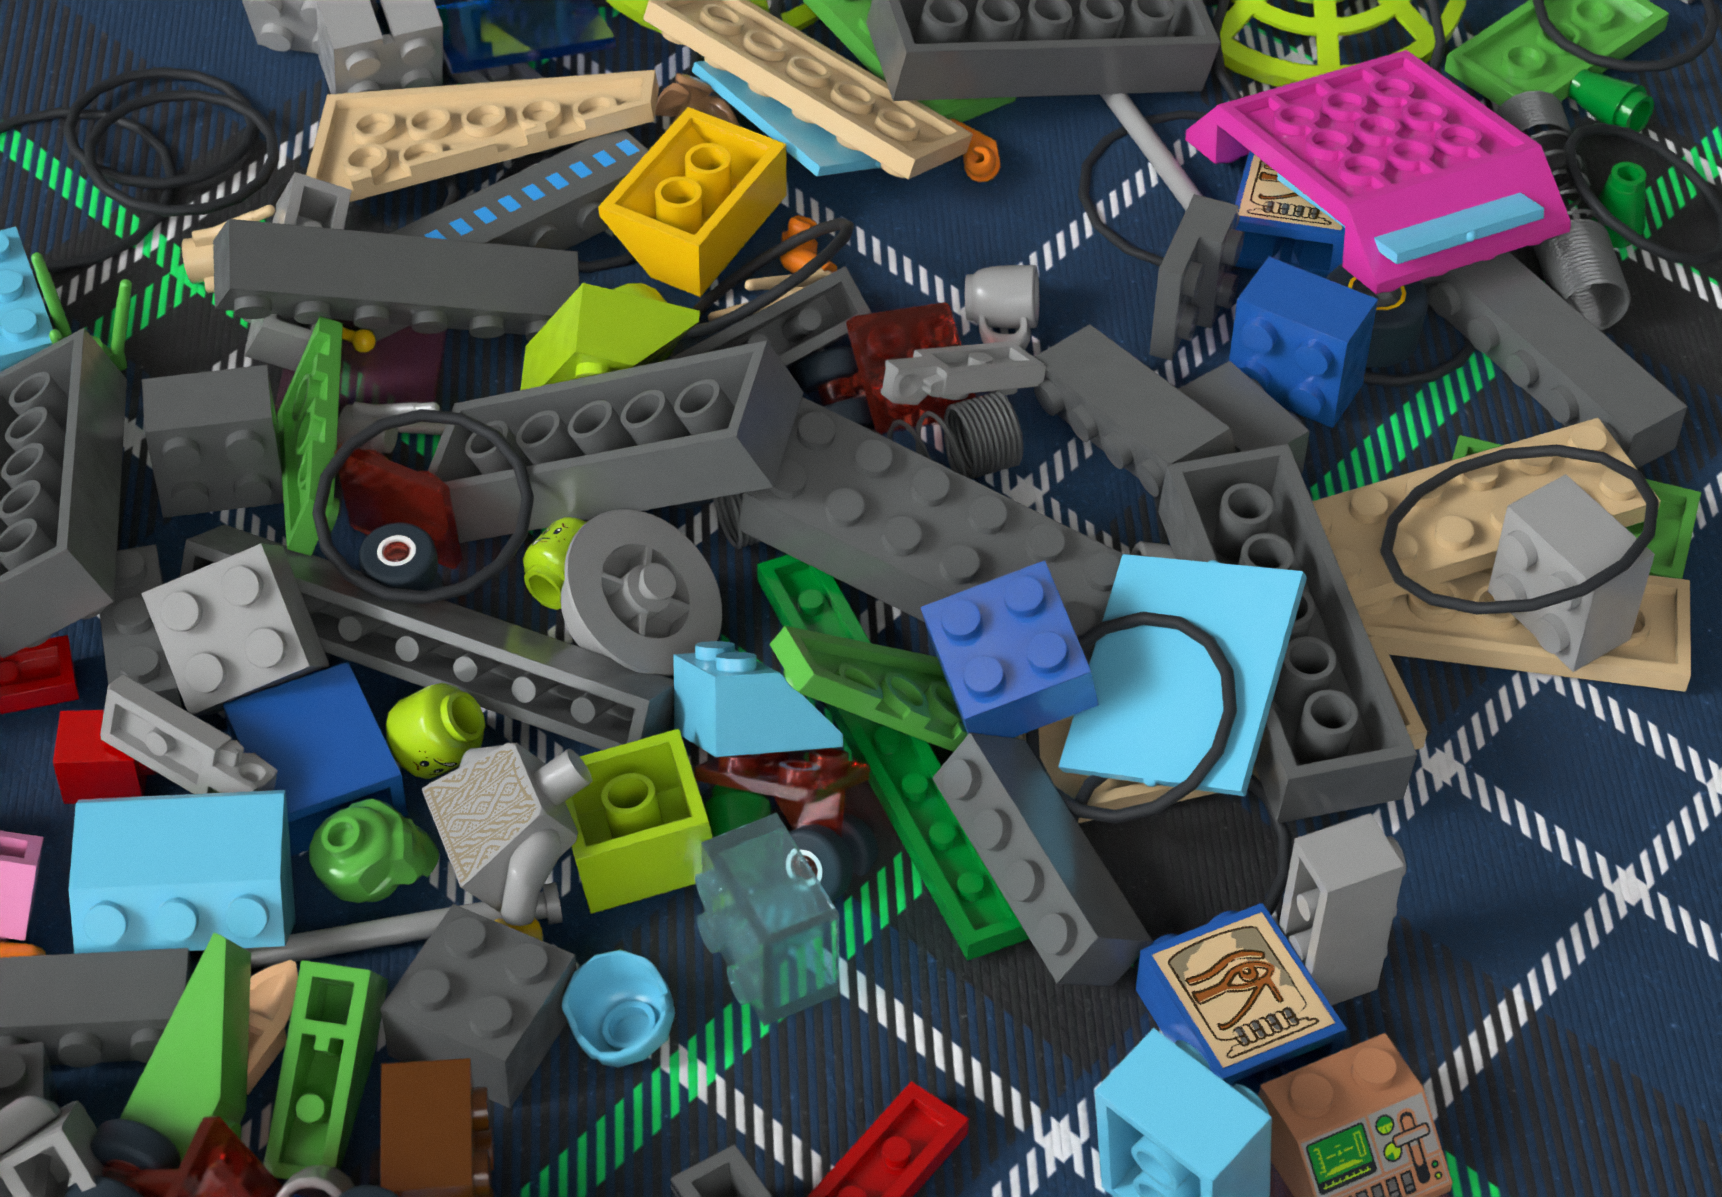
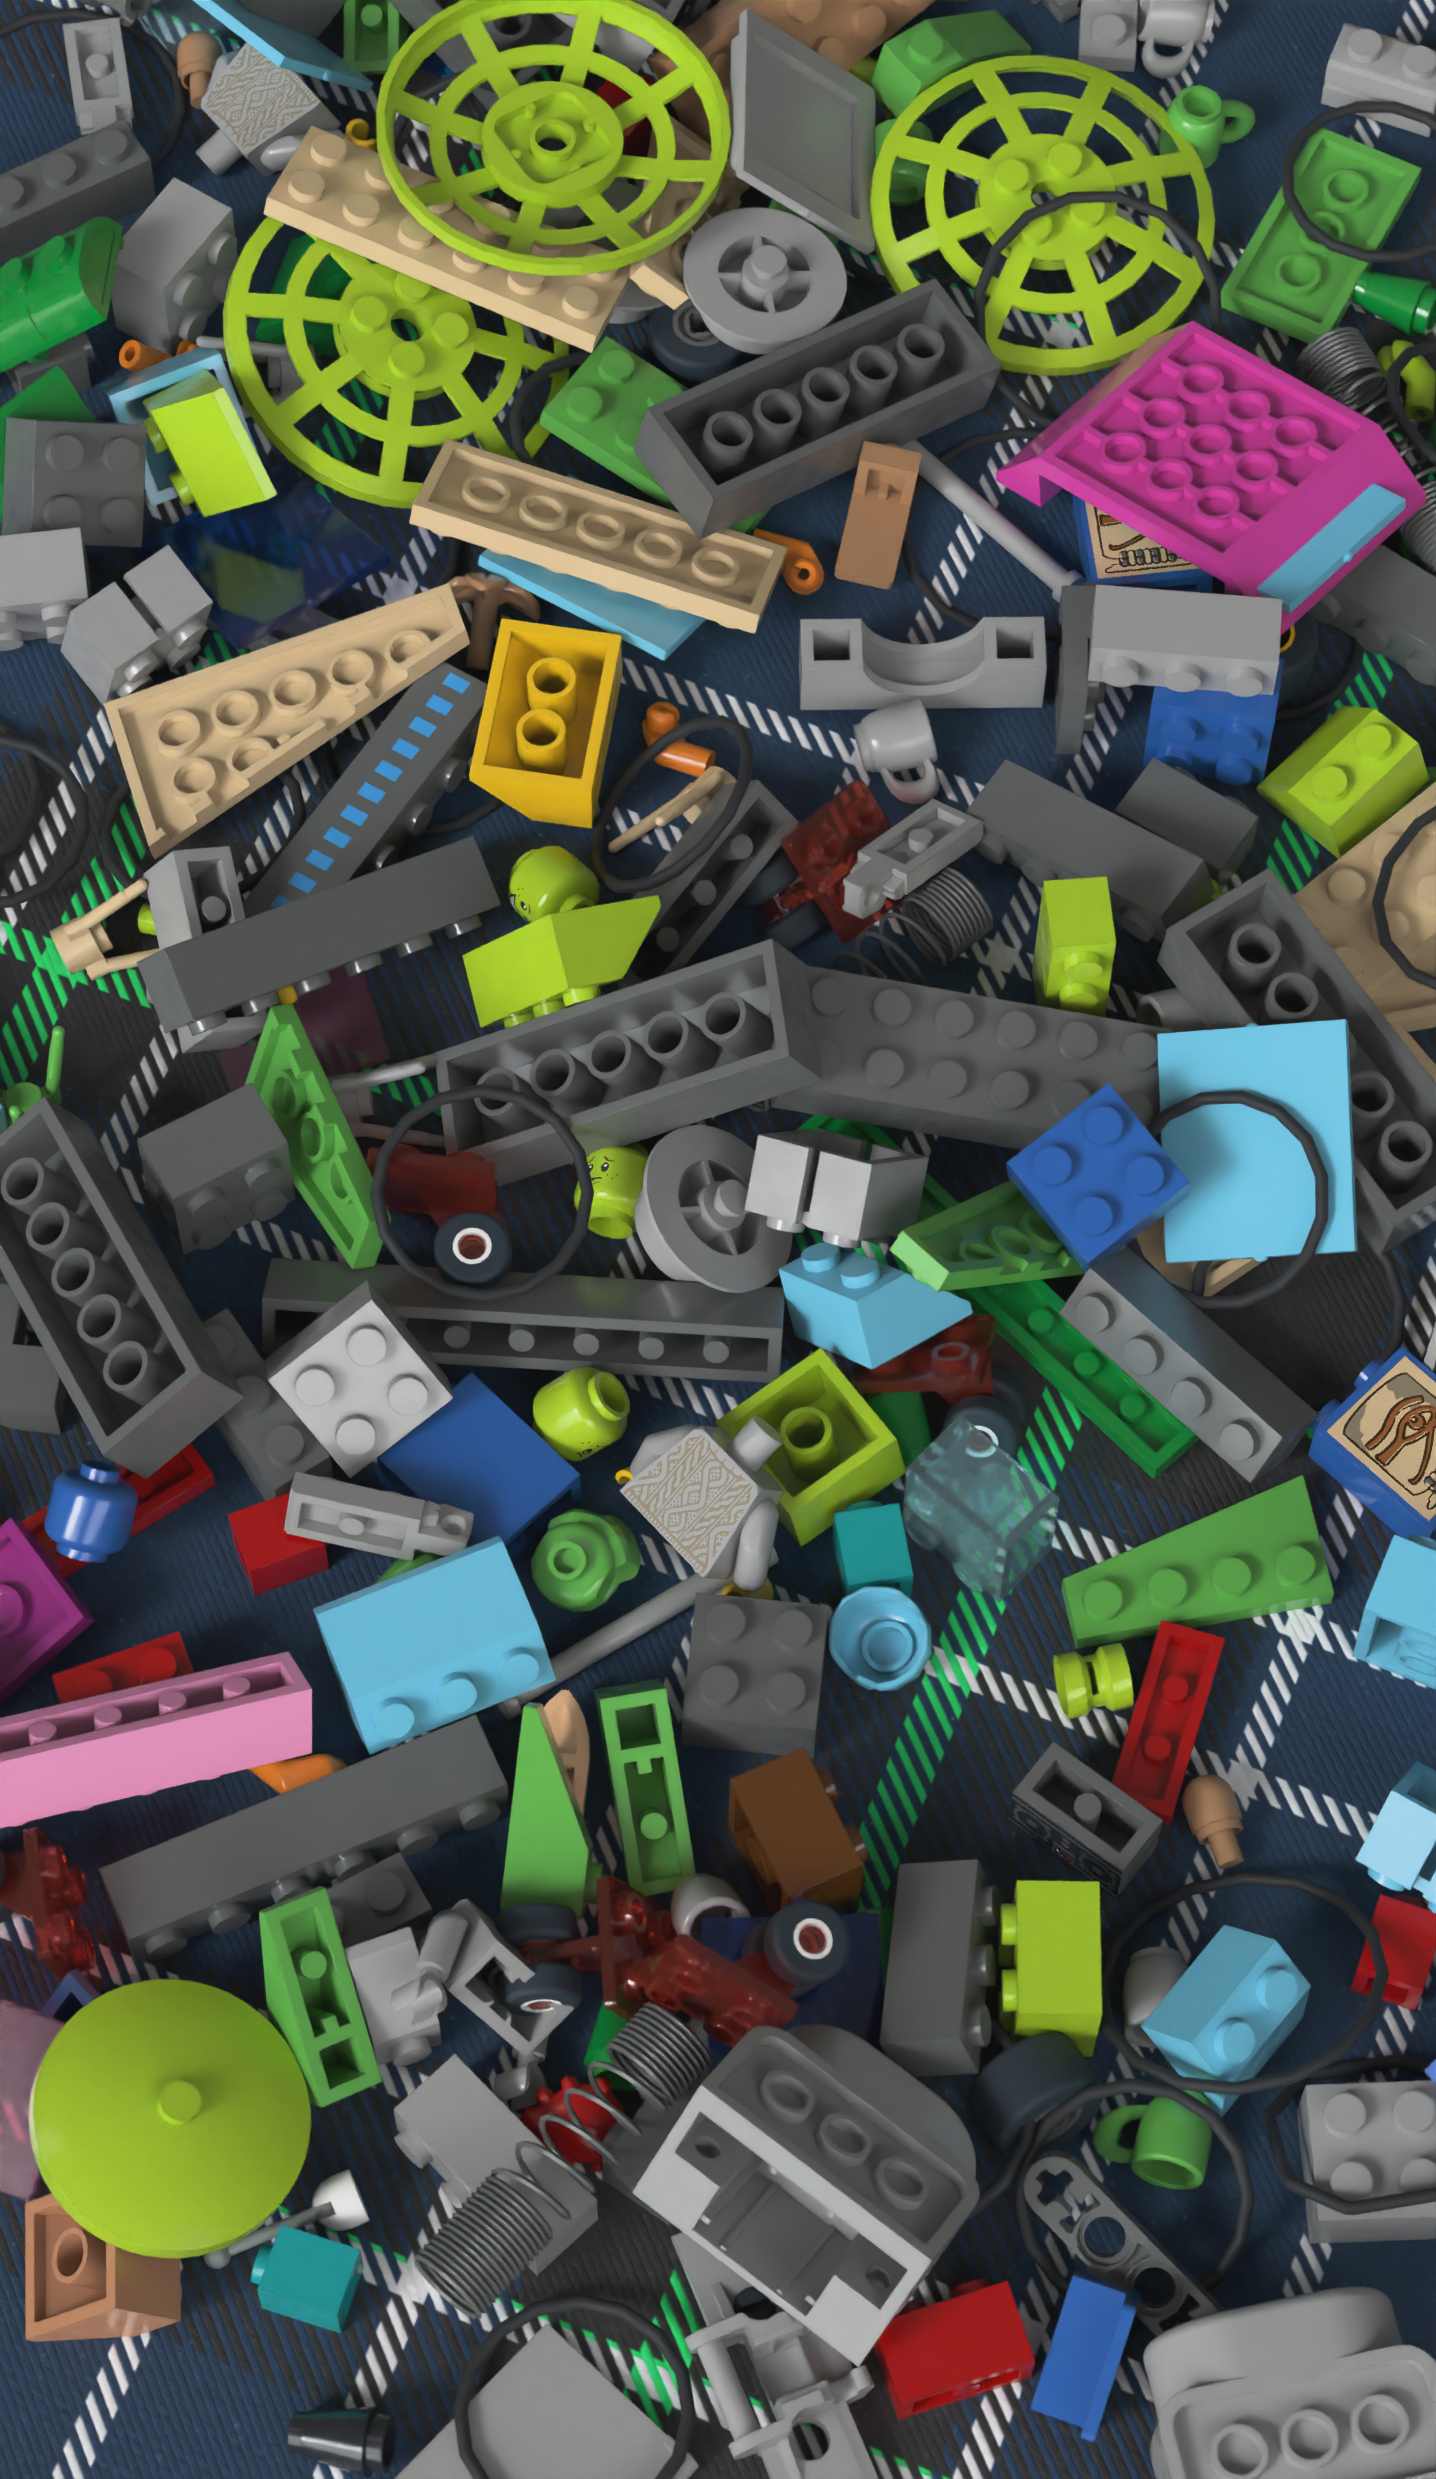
camera: 20 degrees left, 15 degrees up
(656, 924) = (872, 1547): none -> teal brick
(752, 594) = (827, 1185): none -> light grey piece
(832, 1120) = (1093, 1681): none -> lime wheel
(982, 228) = (987, 667): none -> light grey arch
(982, 1060) = (1214, 1571): none -> bright green wing
(1072, 133) = (877, 515): none -> medium nougat bracket
(1079, 460) = (1074, 946): none -> lime brick
(1284, 250) = (1185, 640): none -> light grey brick
(1413, 426) = (1347, 778): none -> lime slope
(1605, 155) = (1419, 380): none -> lime arm

